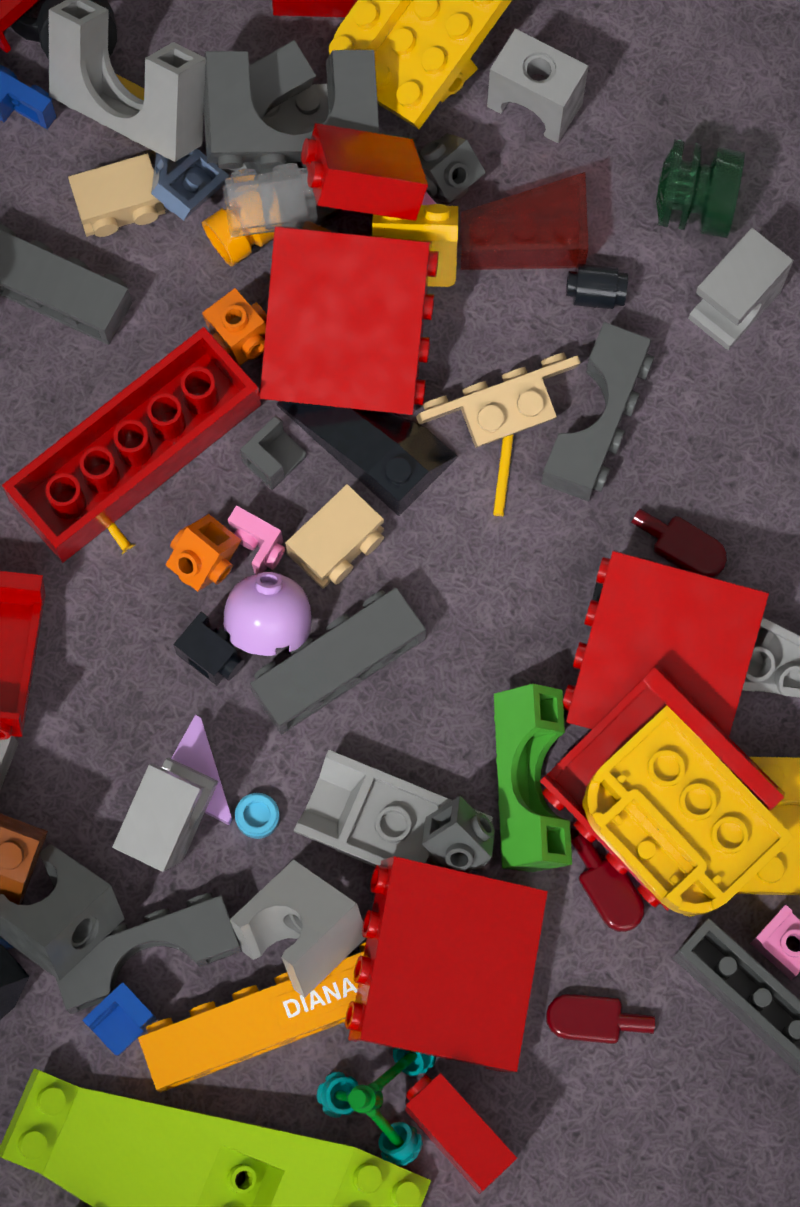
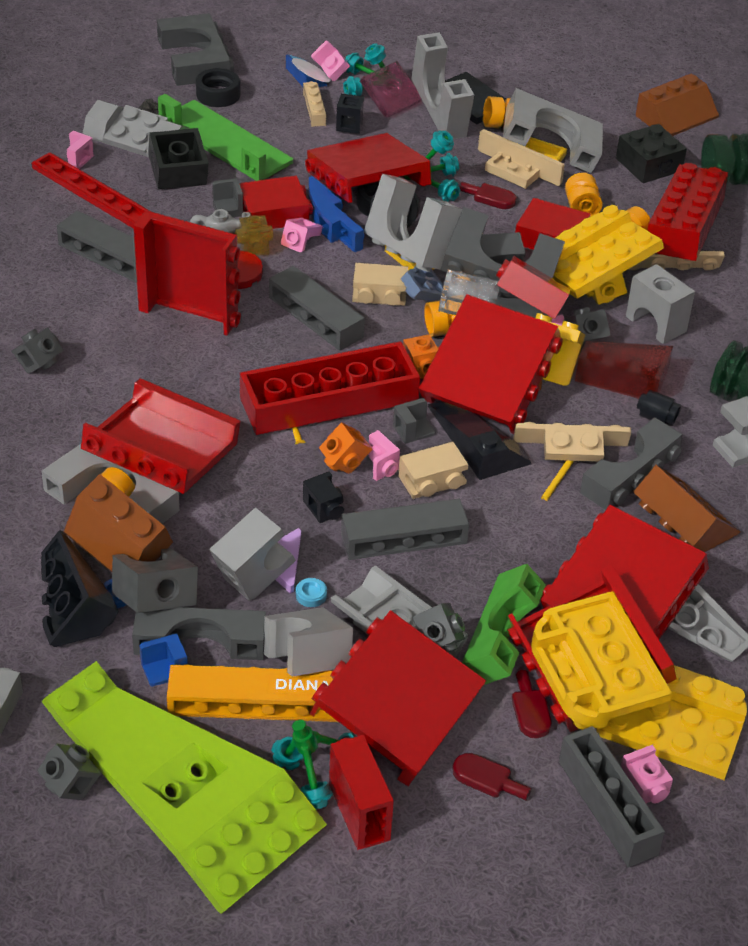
camera: 20 degrees right, 30 degrees down
(267, 614) = (371, 482): lavender cylinder -> none
(695, 469) = (683, 510): none -> dark orange slope

